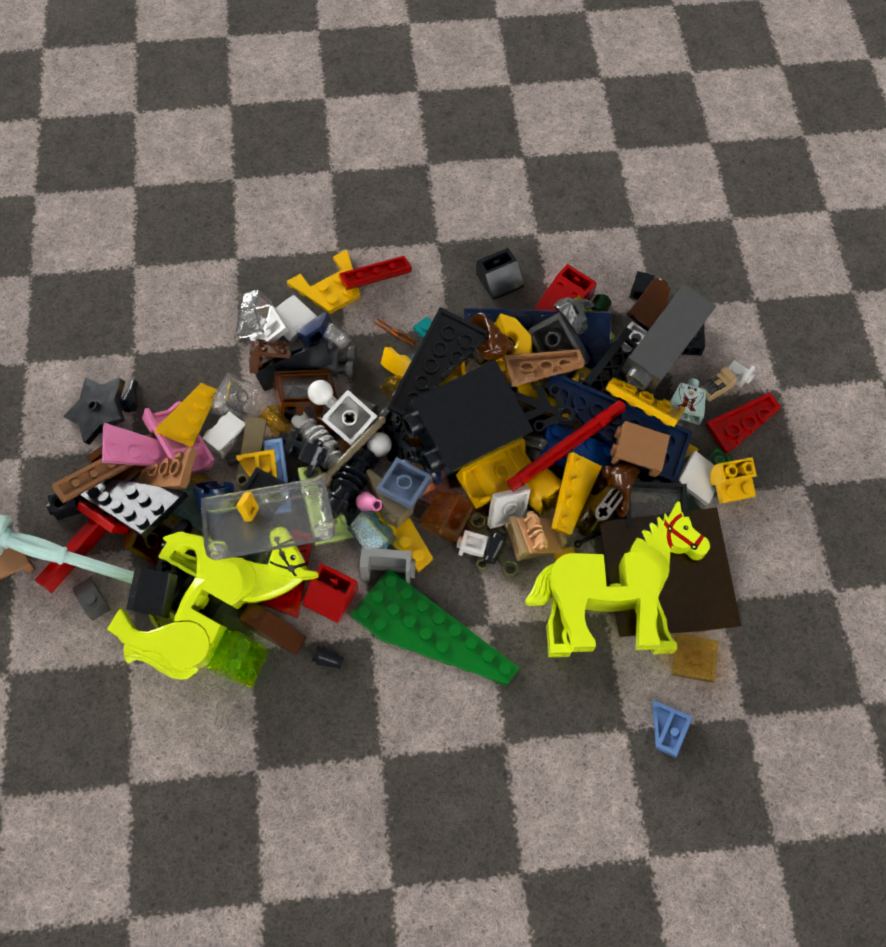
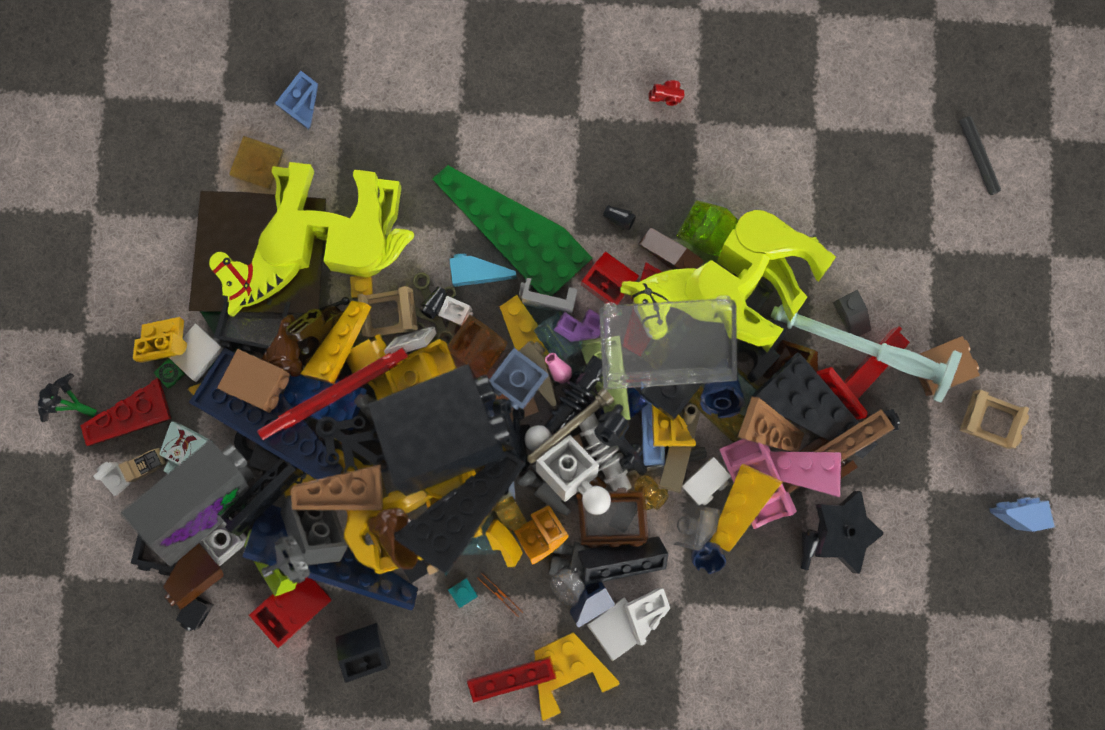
camera: 175 degrees left, 20 degrees up
(152, 592) = (790, 292): black slope -> none
(215, 376) = (709, 558): none -> dark blue hair
(247, 506) = (688, 361): yellow plate -> none
(253, 315) = (663, 631): clear slope -> none
(262, 348) = (651, 575): reddish brown bracket -> none
(286, 793) = (668, 93): none -> red plate
(344, 546) = (577, 331): none -> medium lavender tile
(366, 373) = (541, 534): none -> light orange slope
(461, 584) = (472, 270): none -> medium azure slope
(539, 535) = (385, 306): light nougat hinge -> none
(601, 303) = (252, 590): dark green brick -> none
(644, 400) = (222, 431): yellow wing -> none
(811, 413) = (49, 397): none -> black plant

